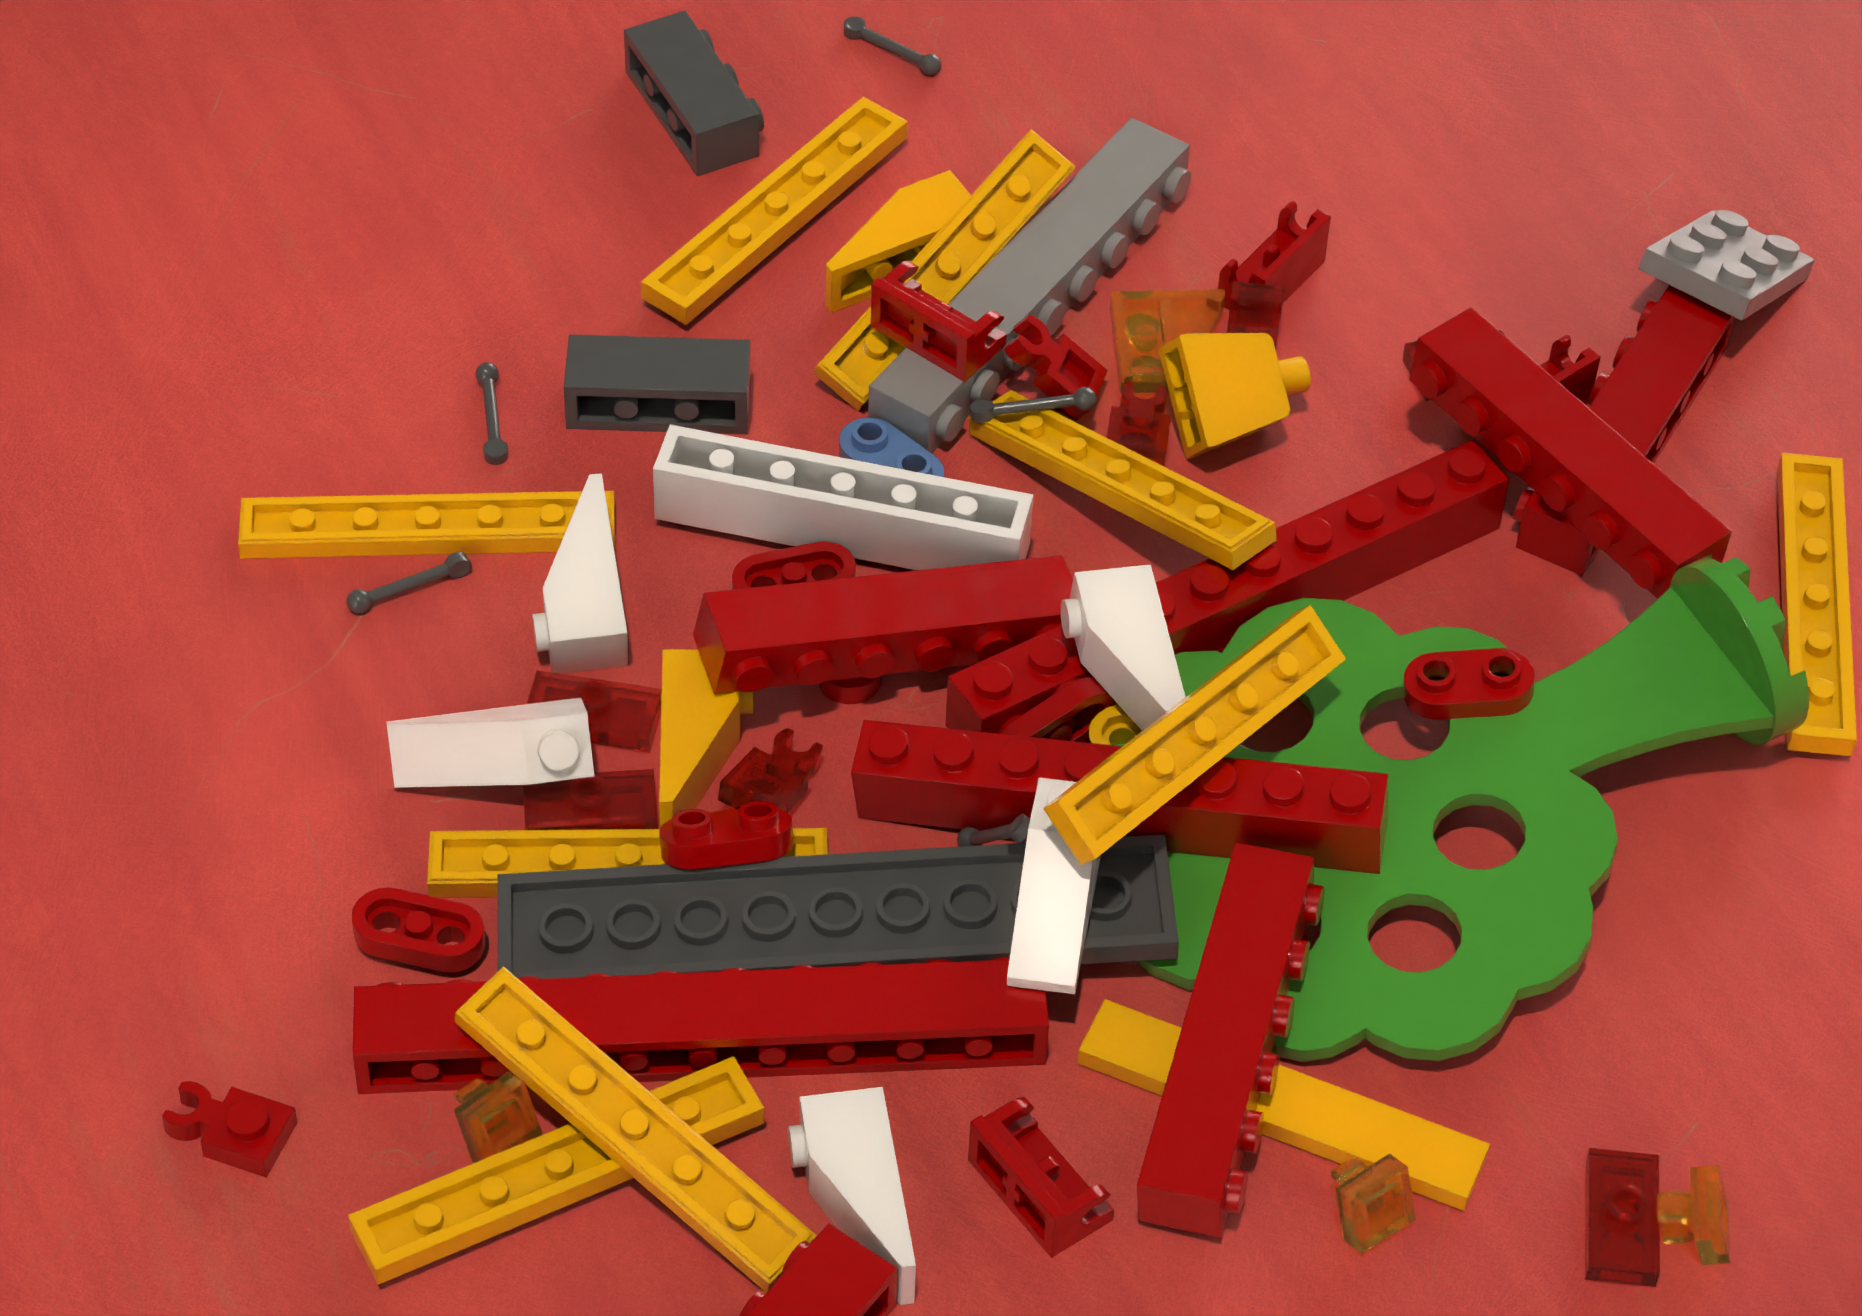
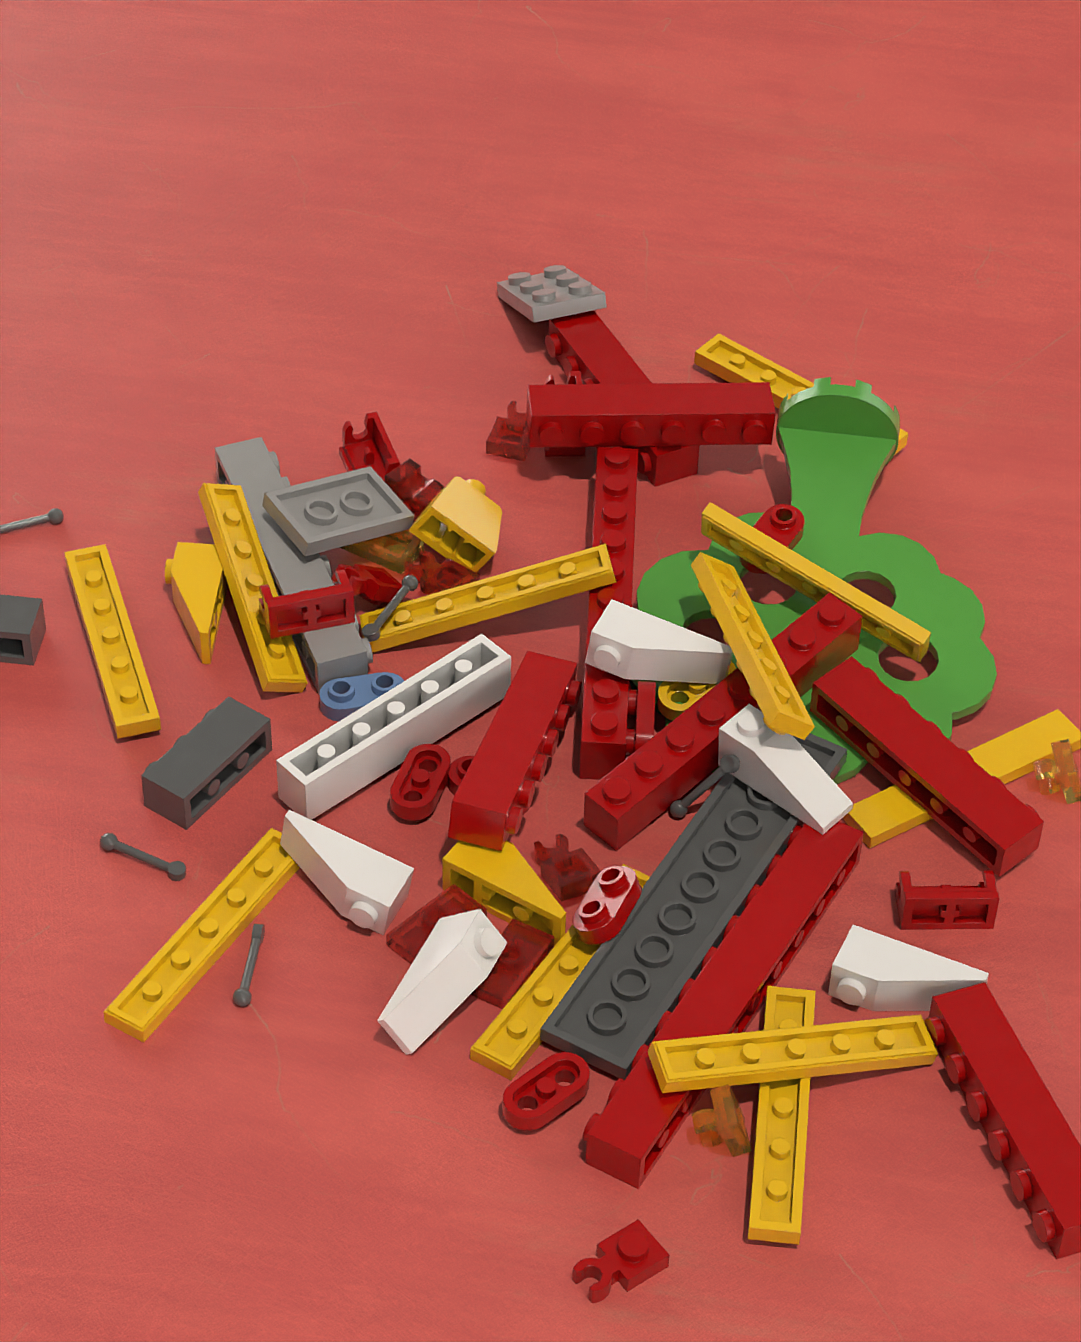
camera: 55 degrees left, 5 degrees down
(1120, 268) = (337, 510): none -> light grey plate
(1406, 759) = (813, 580): none -> yellow tile

